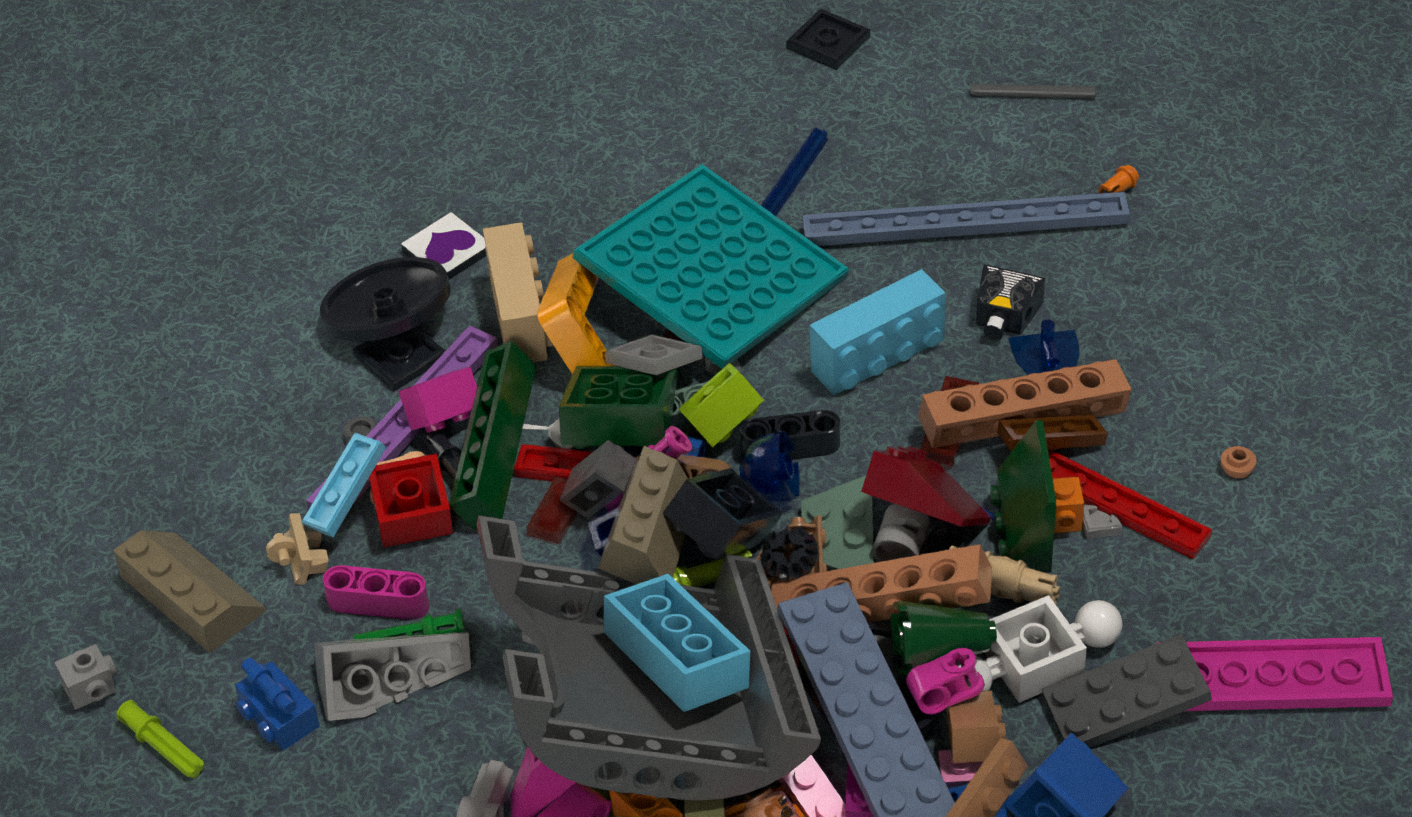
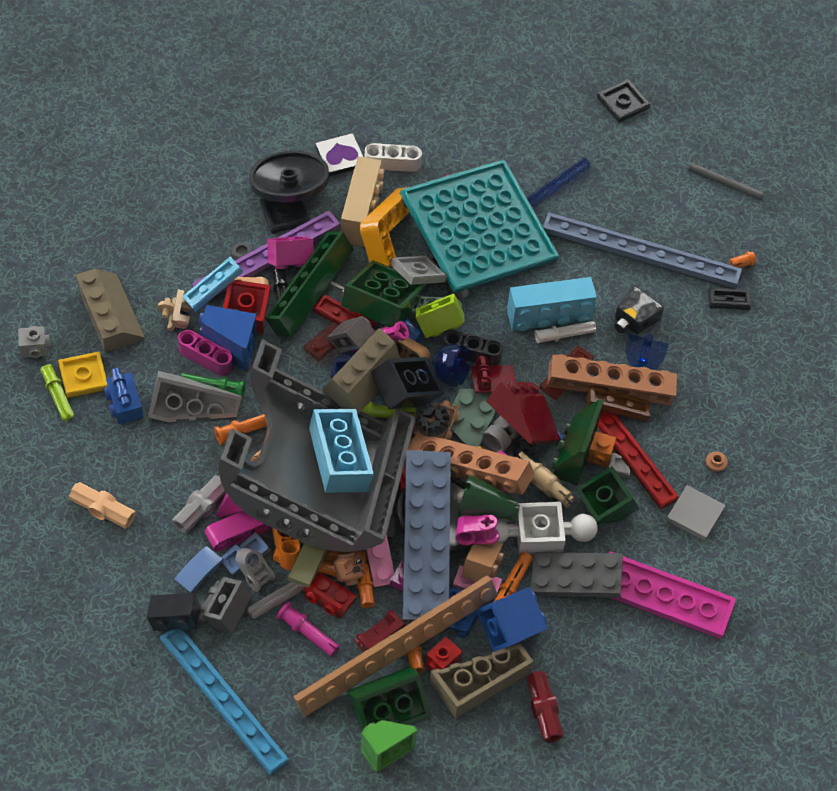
camera: 15 degrees right, 10 degrees up
(190, 697) = (82, 374): none -> yellow tile
(404, 540) = (232, 331): none -> blue slope
(482, 685) = (244, 427): none -> orange pin
(541, 217) = (395, 156): none -> white beam
(837, 469) = (488, 377): none -> dark red hinge
(903, 373) = (562, 332): none -> white axle
(1032, 732) = (523, 563): none -> orange pin
(1111, 564) = (607, 497): none -> dark green slope
(1130, 243) = (729, 301): none -> black tile
(1249, 543) = (695, 513): none -> light grey tile

